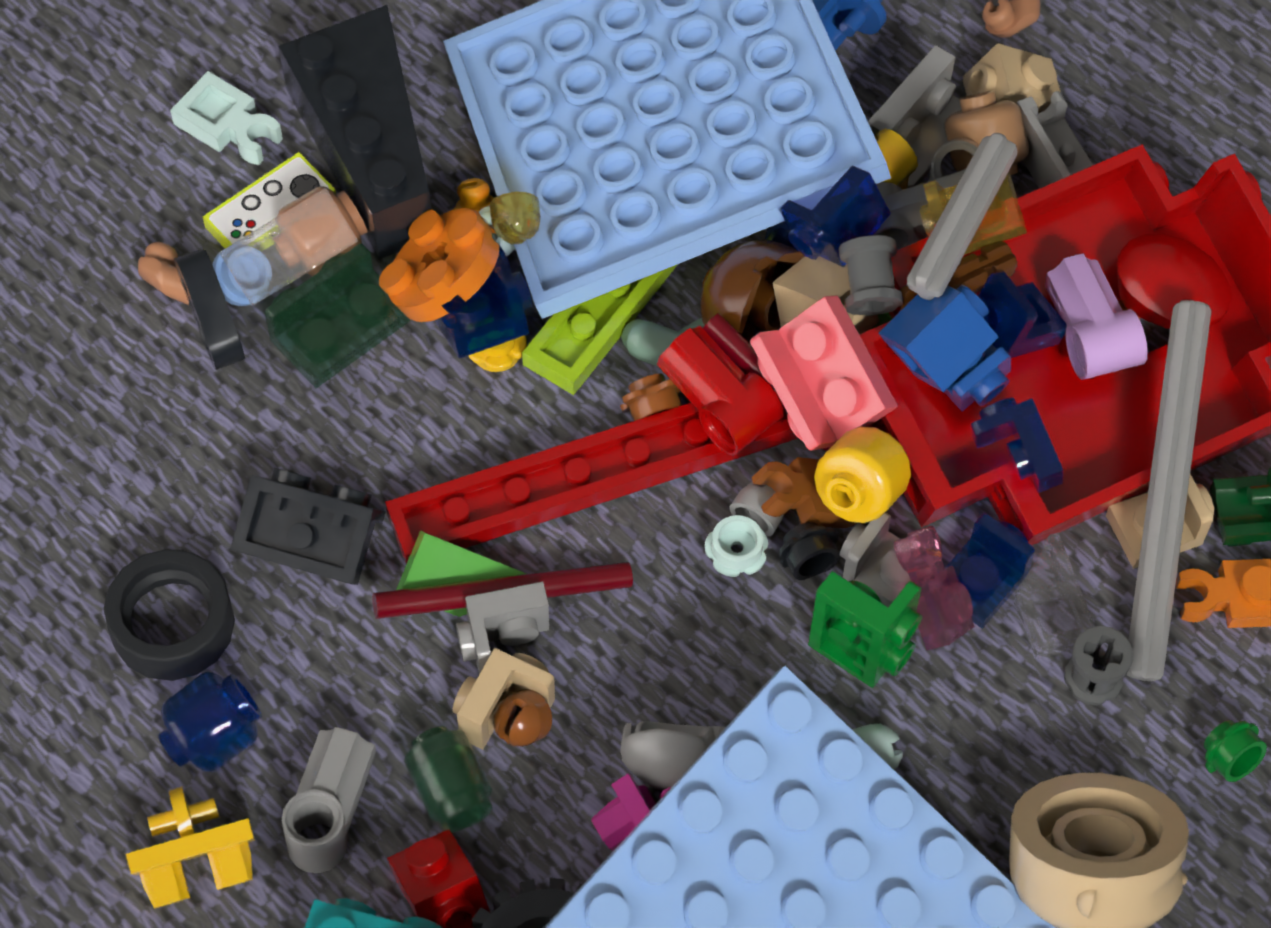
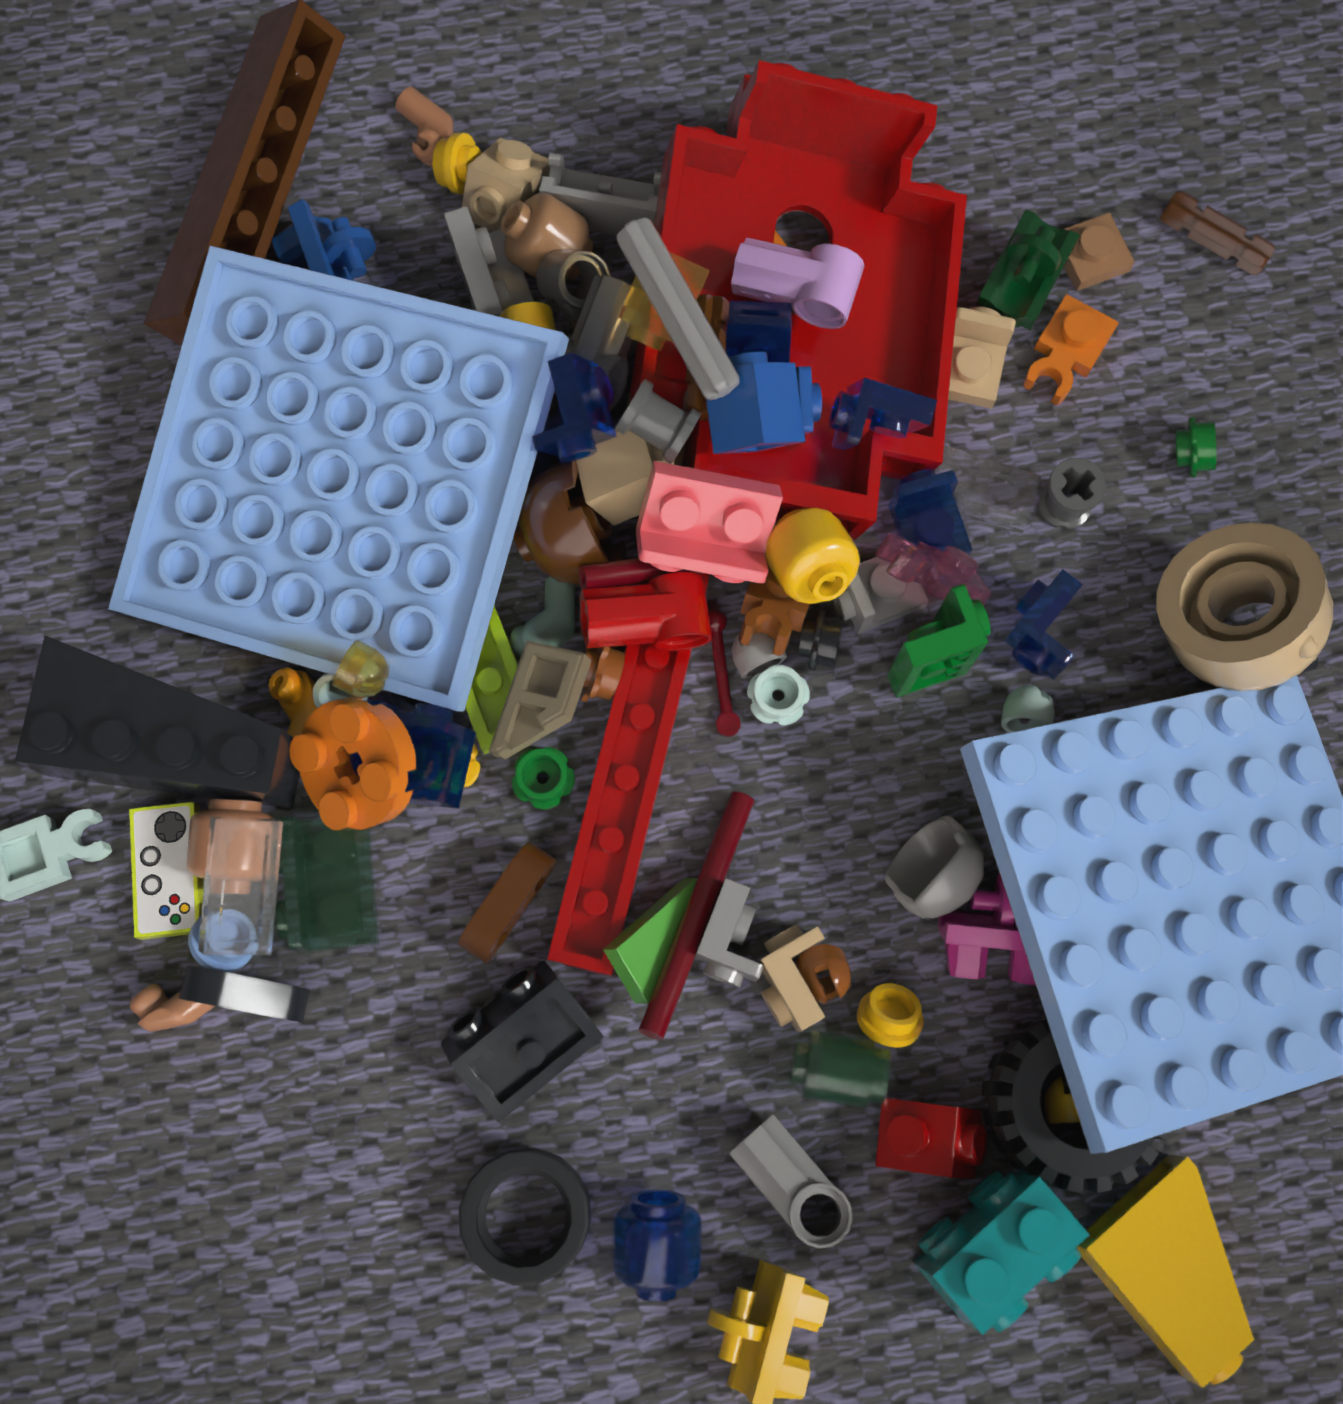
camera: 55 degrees left, 15 degrees up
(412, 448) = (507, 902): none -> reddish brown beam
(523, 792) = (891, 1015): none -> yellow plate
(534, 400) = (539, 761): none -> green plate
(592, 361) = (539, 697): none -> dark tan tile
(685, 526) = (727, 723): none -> dark red hinge
(962, 704) = (1040, 607): none -> clear blue bracket
(1000, 30) = (452, 160): none -> yellow plate
(1165, 269) = (800, 198): red hat -> none
(1168, 489) = (968, 326): light grey axle -> none

